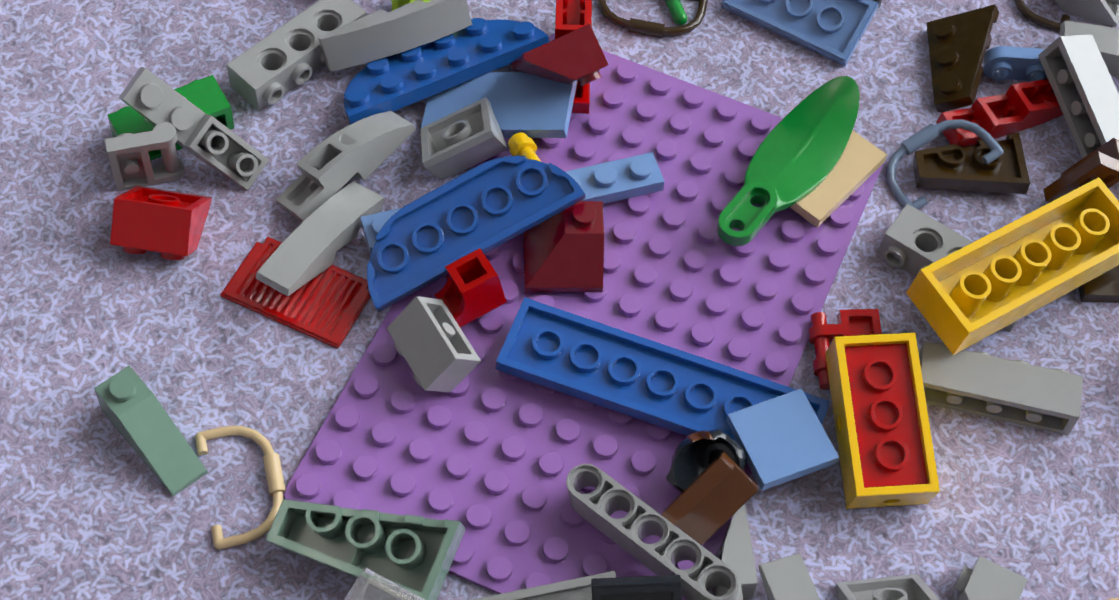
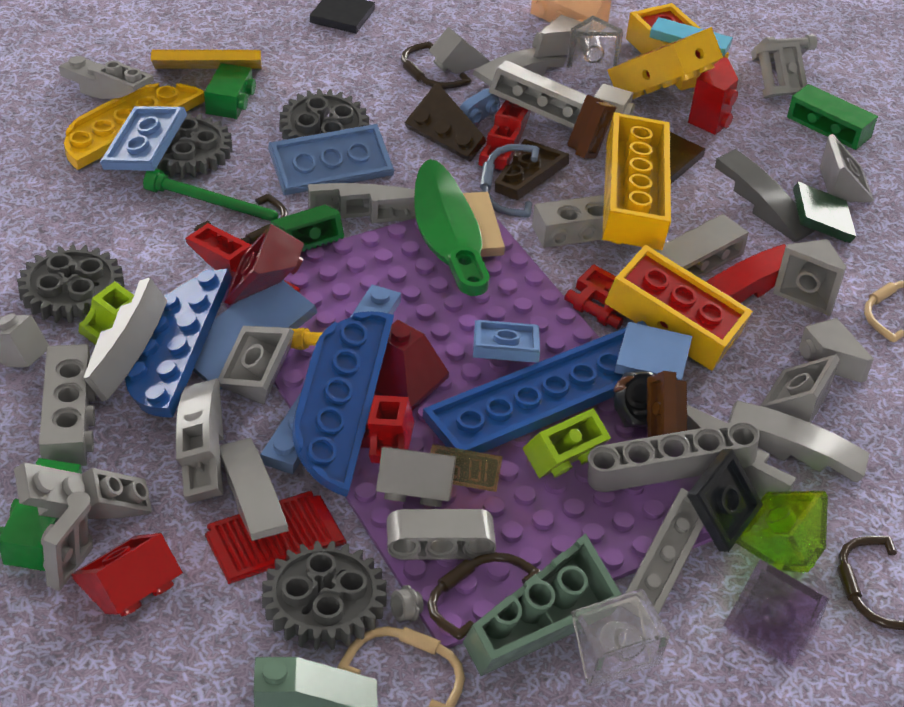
camera: 50 degrees left, 15 degrees down
(256, 400) = (324, 595): none -> dark grey gear
(300, 438) = (406, 604): none -> light grey plate
(355, 454) = (458, 574): none -> dark brown piece
(389, 410) = (440, 534): none -> light grey beam
(489, 382) = (473, 468): none -> clear yellow tile
(583, 438) = (565, 443): none -> lime brick
(676, 55) = (313, 226): none -> green brick
(683, 306) = (506, 341): none -> medium blue tile
(759, 60) = (359, 200): none -> light grey slope
(1014, 458) = (750, 276): none -> red slope
(1071, 512) = (811, 275): none -> light grey slope

